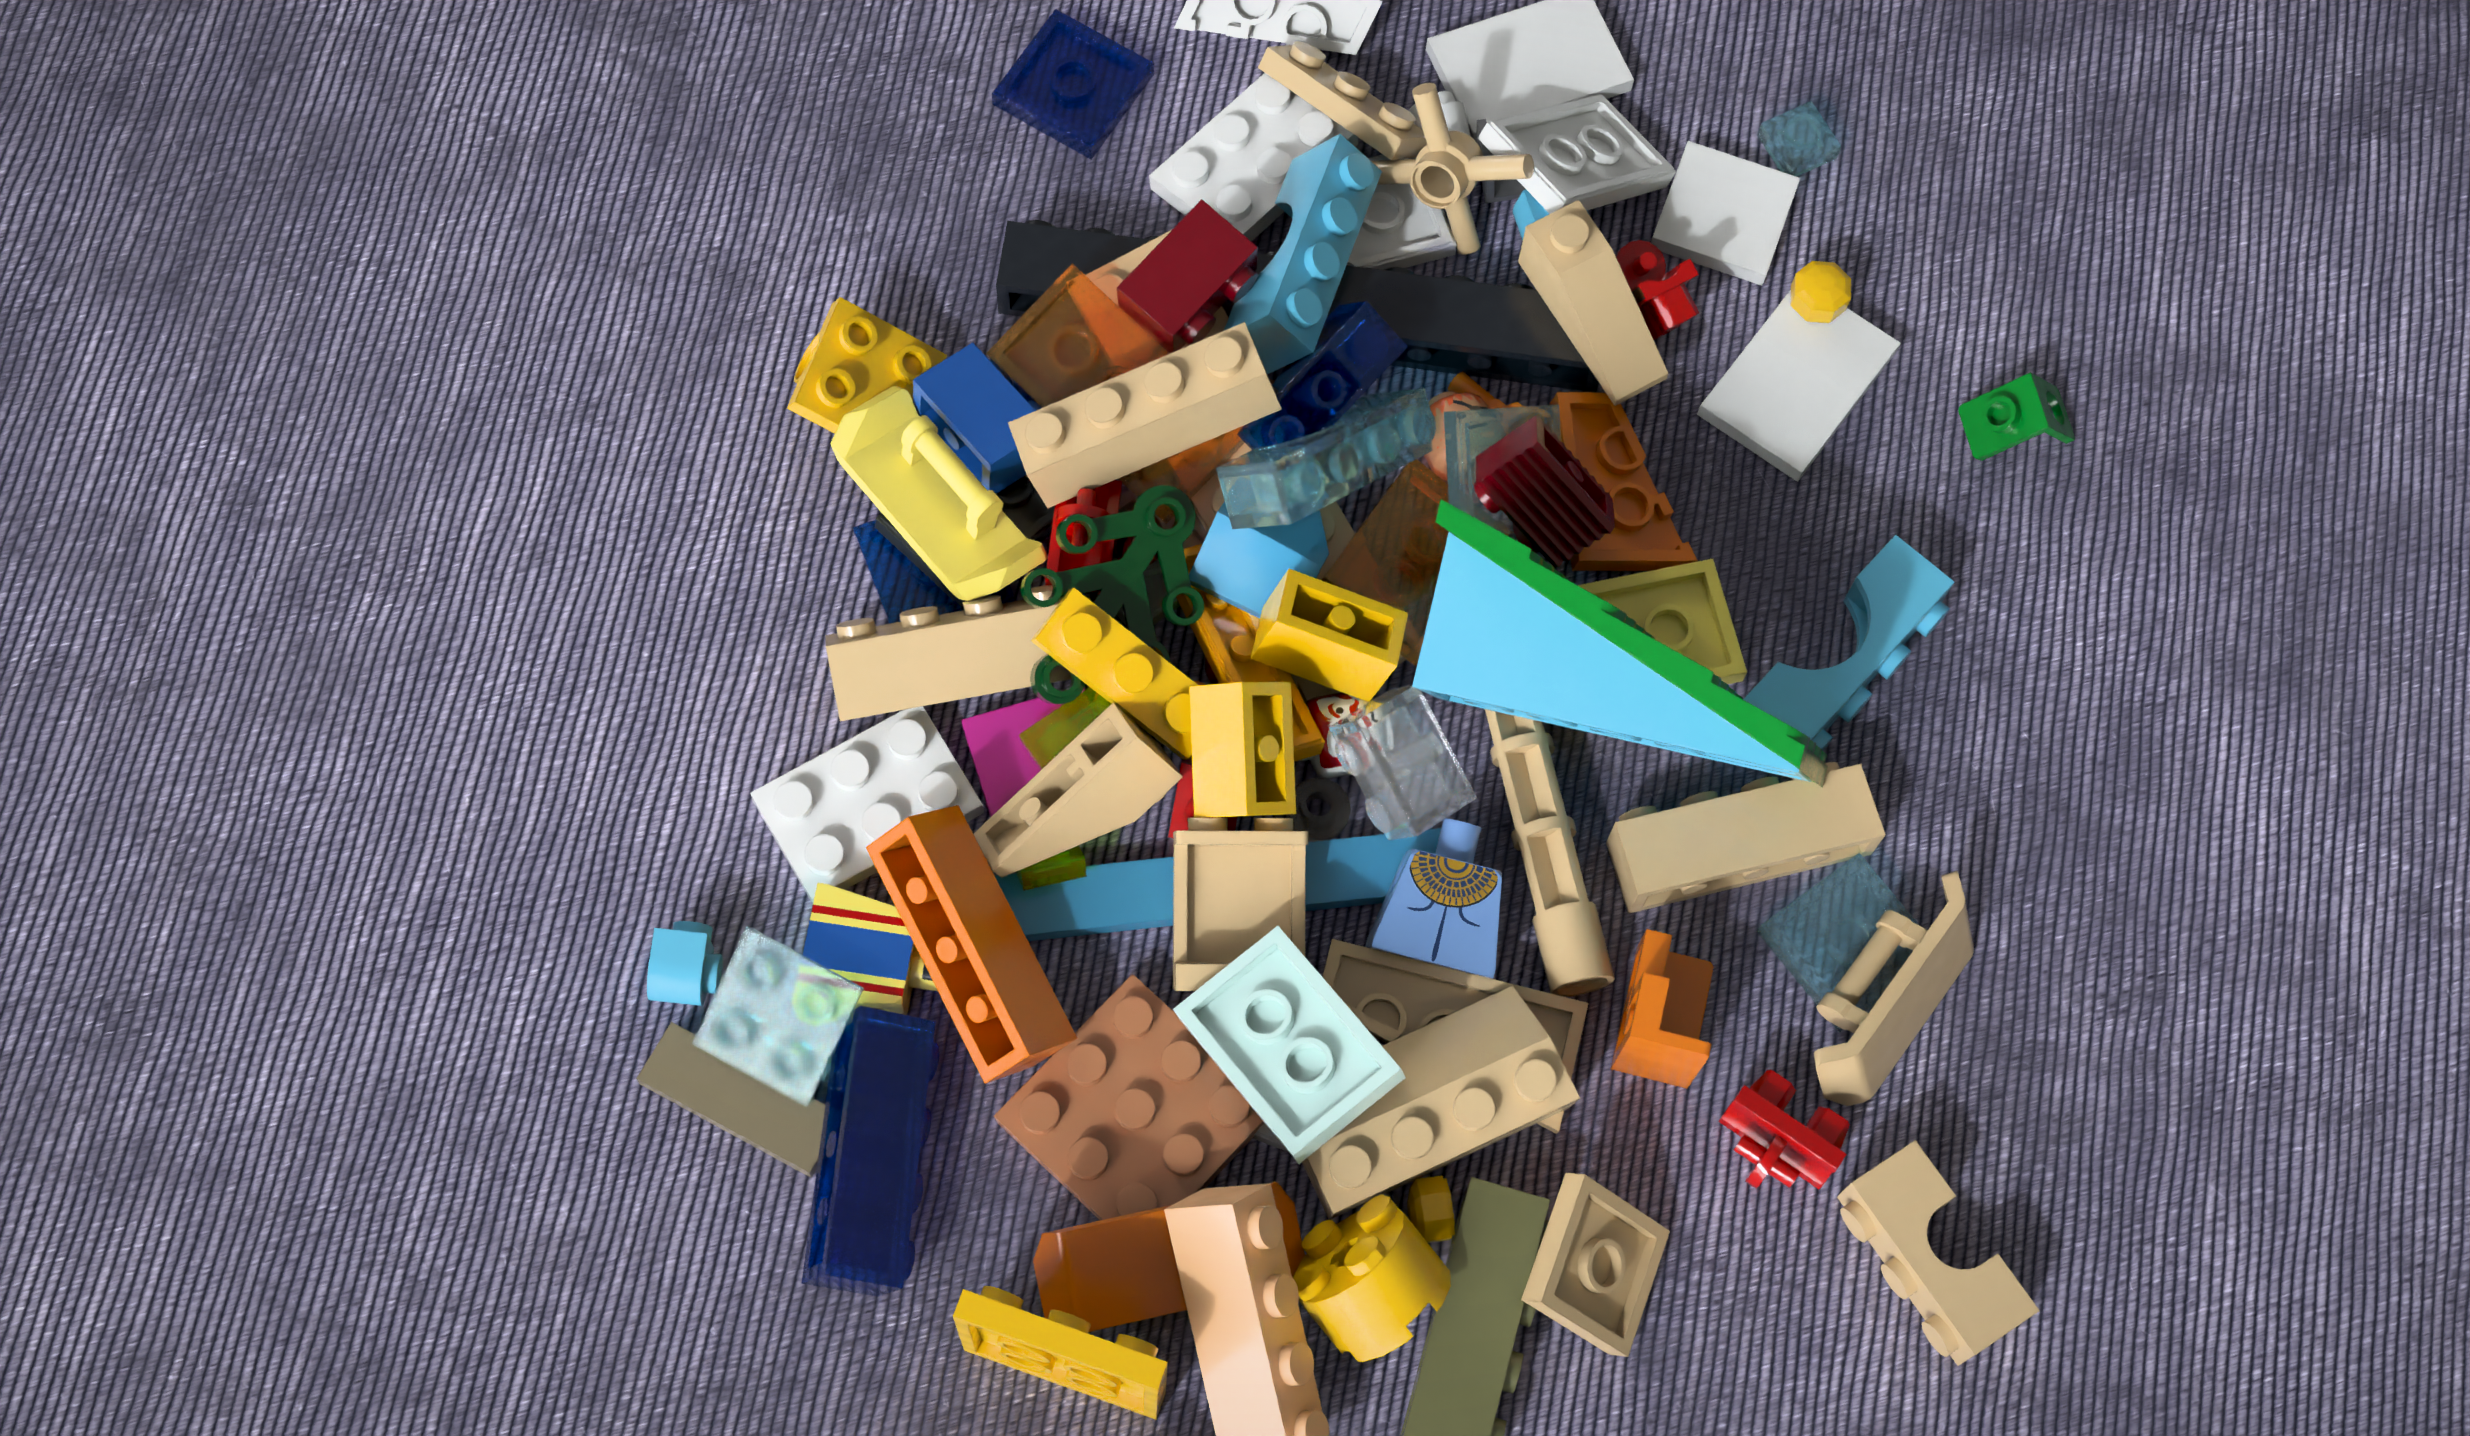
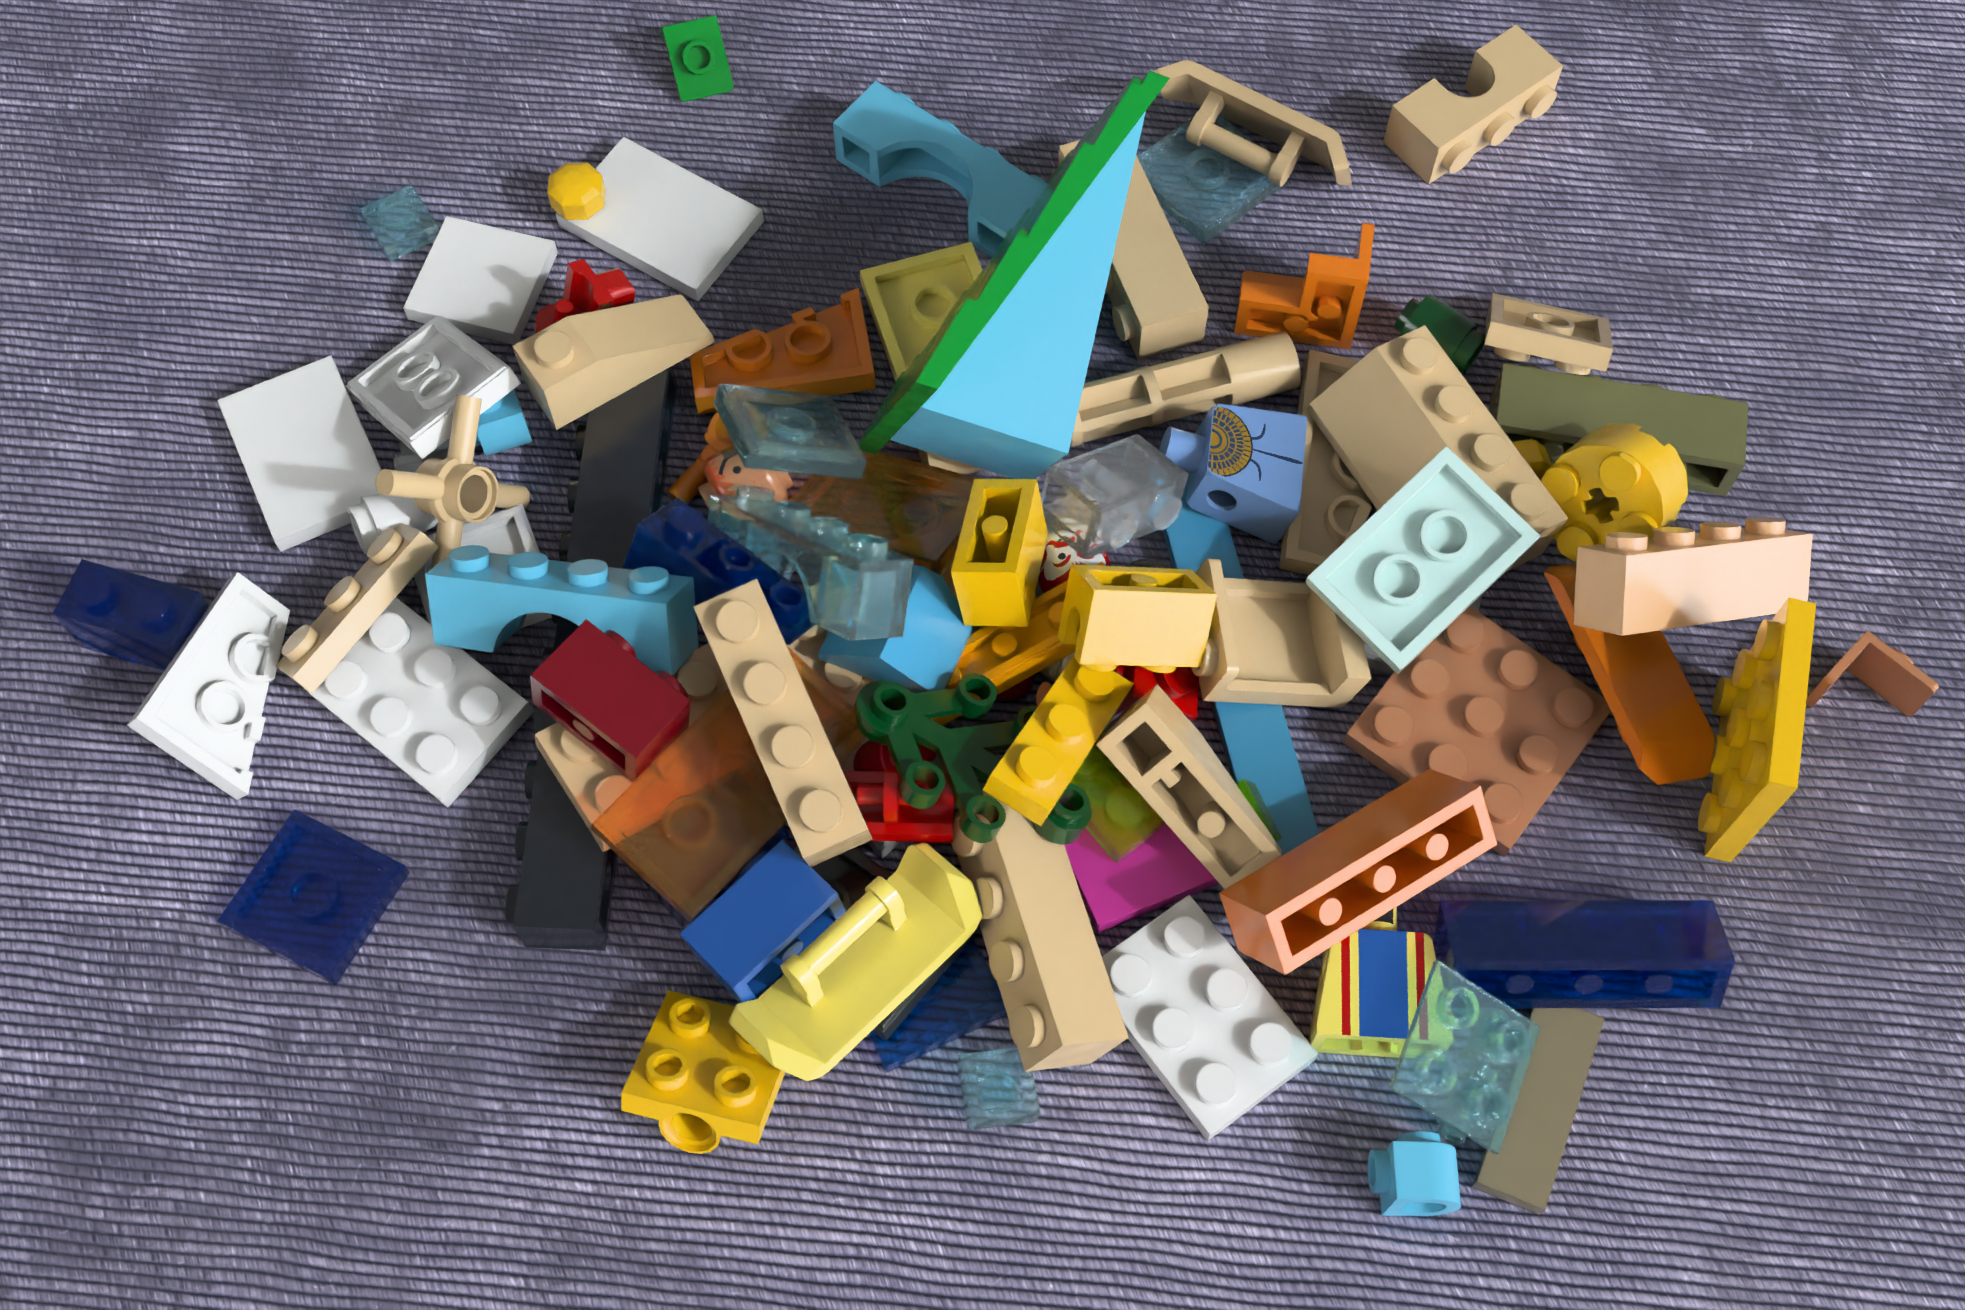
camera: 90 degrees left, 5 degrees down
(814, 612) = (996, 1089): none -> clear light blue plate
(1543, 492) = (826, 382): dark red brick -> none
(1612, 1149) = (1449, 327): none -> dark green brick
(1779, 1142) = (1404, 209): red hips -> none

